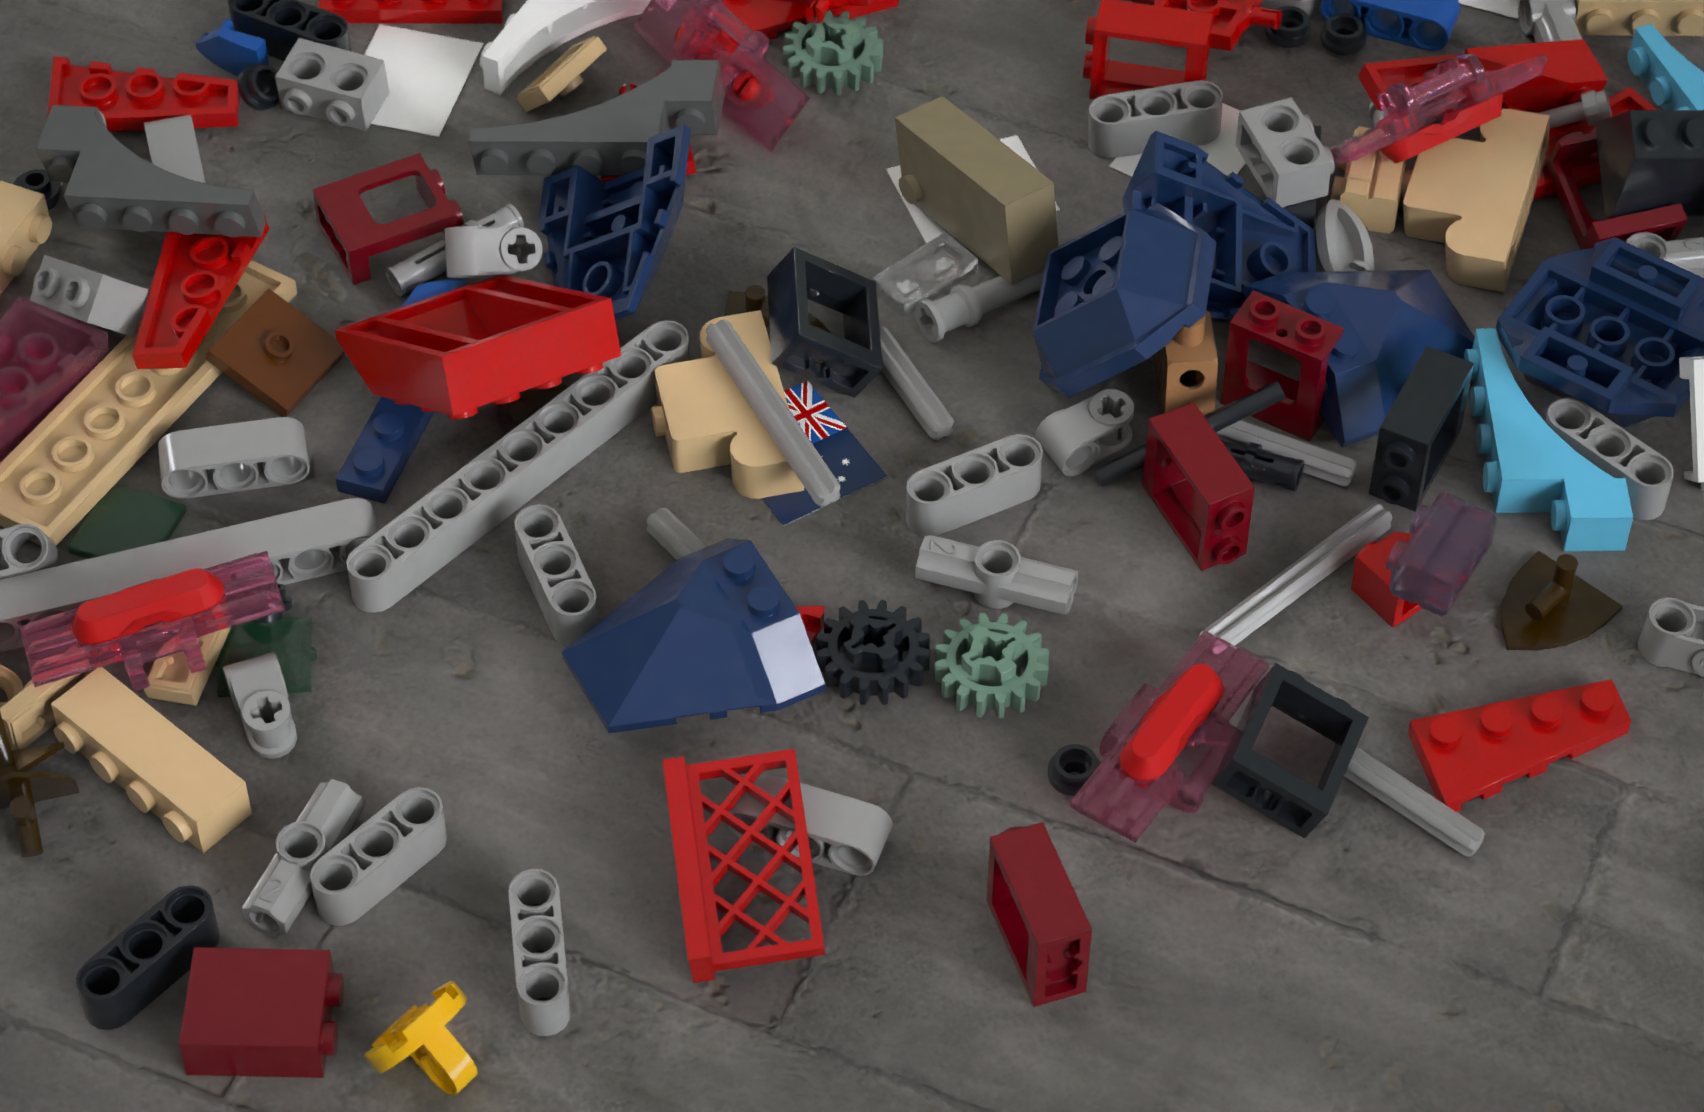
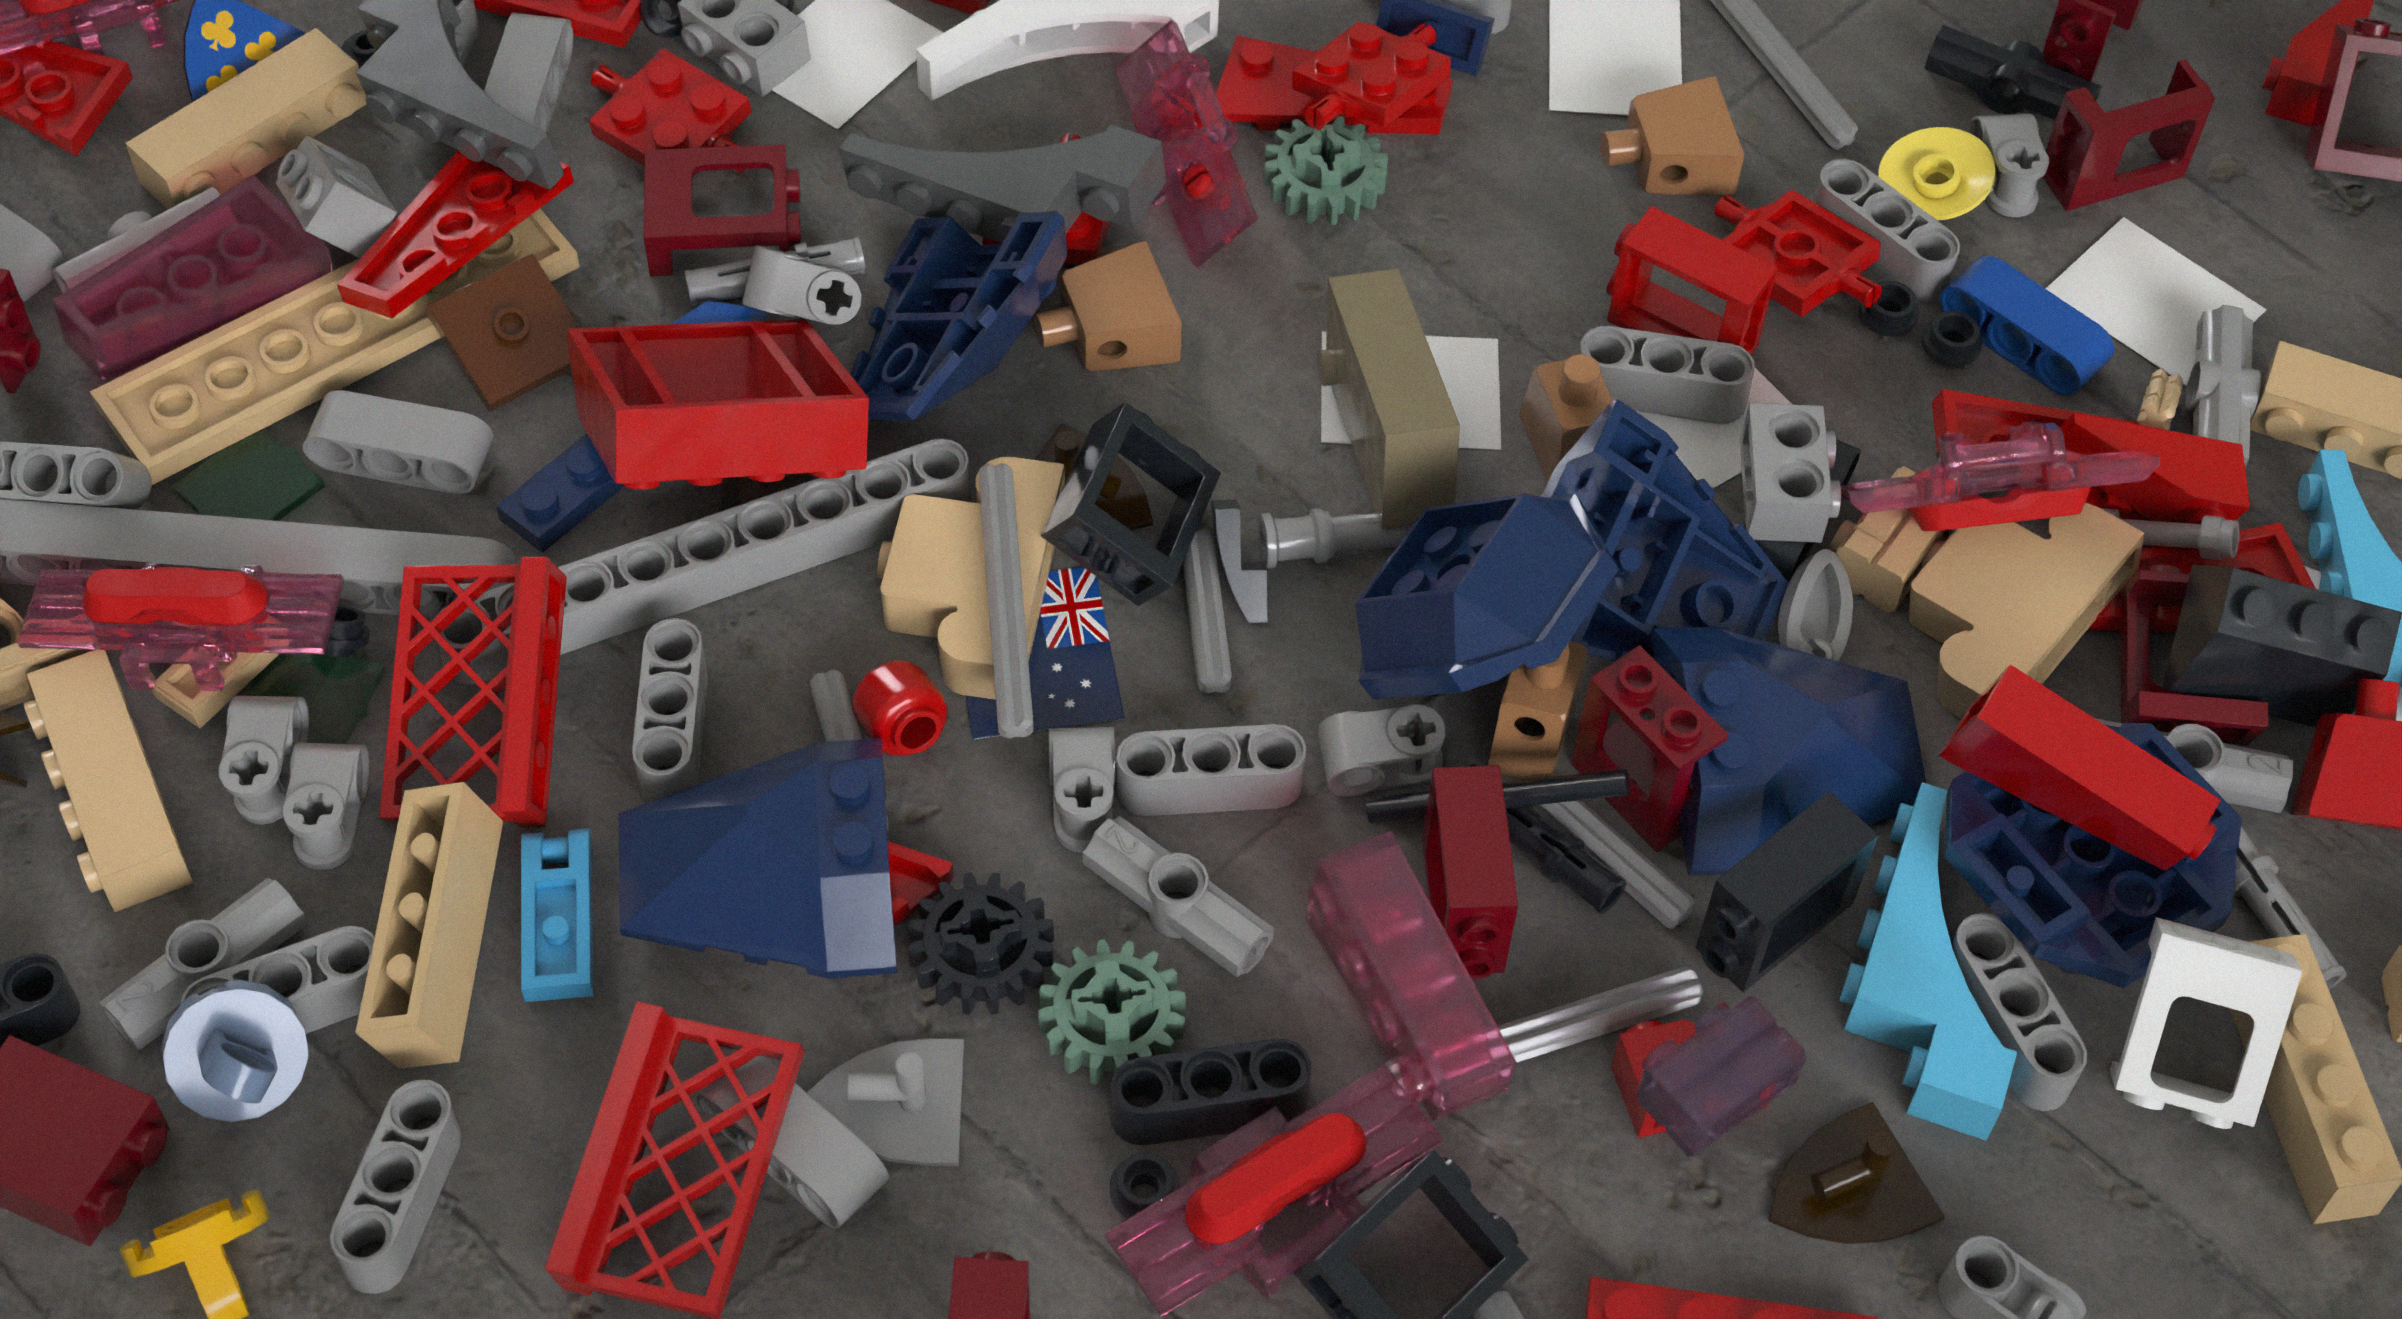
camera: 20 degrees right, 5 degrees up
(300, 158) = (666, 108): none -> red plate
(328, 721) = (325, 801): none -> light grey piece
(370, 901) = (234, 1051): none -> tile
(449, 590) = (528, 683): none -> red fence
(466, 771) = (430, 926): none -> tan brick
(549, 739) = (556, 916): none -> dark azure plate
(562, 75) = (1005, 100): tan plate -> none
(725, 512) = (900, 707): none -> red head
(733, 199) = (1115, 313): none -> medium nougat torso
(872, 770) = (901, 1100): none -> light grey shield
(885, 525) = (1081, 782): none -> light grey piece
(925, 274) = (1292, 479): clear plate -> none
(927, 354) = (1245, 579): none -> slope
(1086, 692) = (1185, 1114): none -> black beam
(1102, 164) = (1561, 406): none -> medium nougat torso
(1191, 565) = (1407, 976): none -> clear pink wedge
(1509, 28) = (2160, 400): none -> tan axle
(1585, 277) = (2081, 771): none -> red slope

